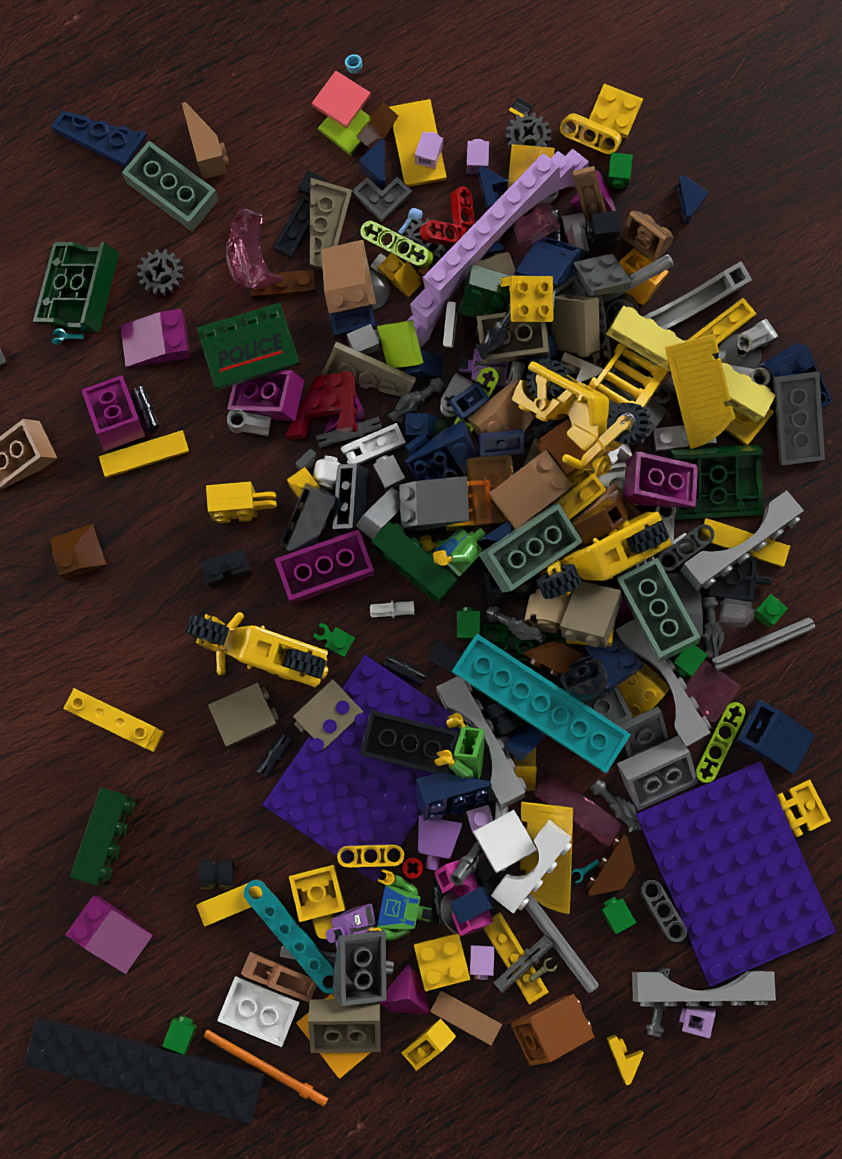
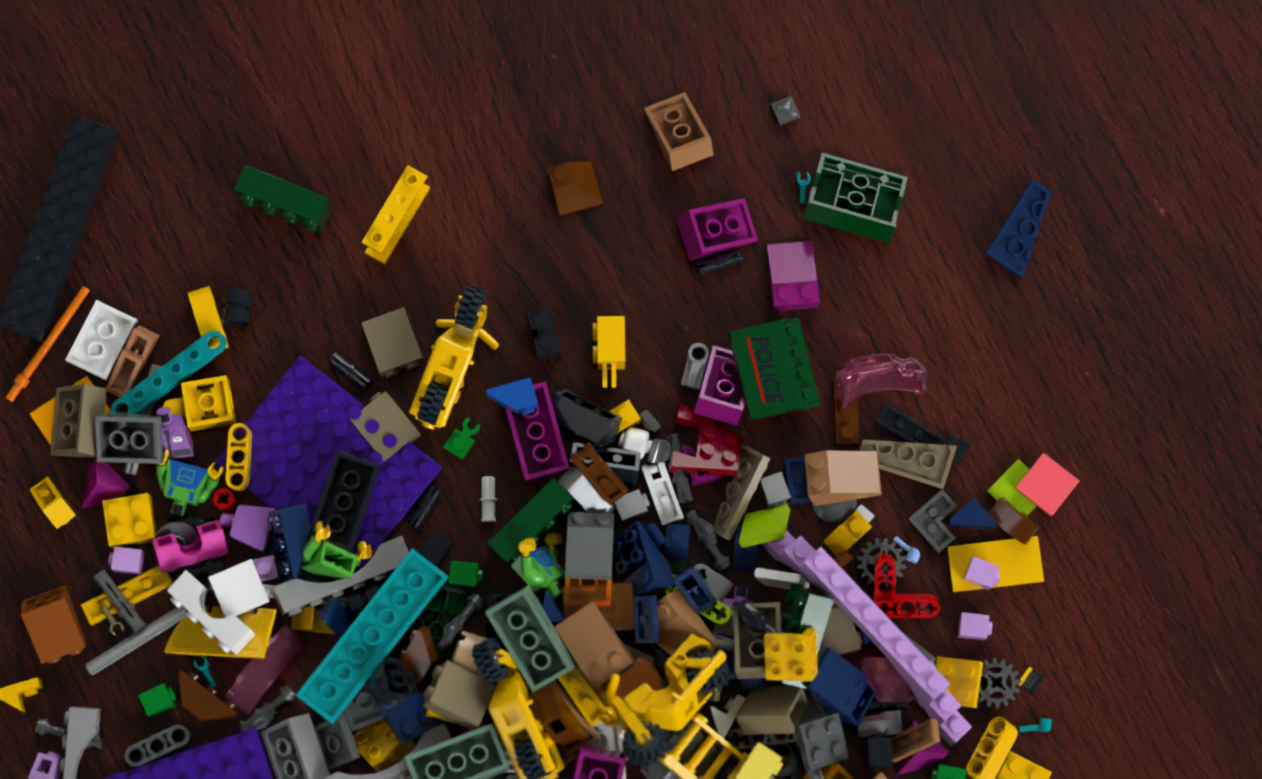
camera: 90 degrees right, 0 degrees up
(109, 934) = (189, 201): magenta slope -> none
(144, 454) = (671, 258): yellow tile -> none
(155, 264) = (873, 286): dark grey gear -> none
(170, 186) = (957, 299): sand green brick -> none
(180, 1034) = (86, 263): green brick -> none
(209, 153) = (994, 338): medium nougat slope -> none
(293, 583) = (515, 396): none -> blue slope
(335, 448) = (659, 451): none -> flat silver plate
(353, 64) = (1092, 501): medium azure hinge -> none
(363, 498) = (599, 474): none -> reddish brown plate
(395, 246) = (875, 529): lime beam -> none
(466, 1017) = (74, 541): medium nougat tile -> none
(467, 865) = (219, 550): dark grey pin -> none
(472, 905) = (179, 551): dark blue slope -> none
(490, 184) = (943, 636): dark blue slope -> none
(562, 92) = (1044, 726): none -> teal hand

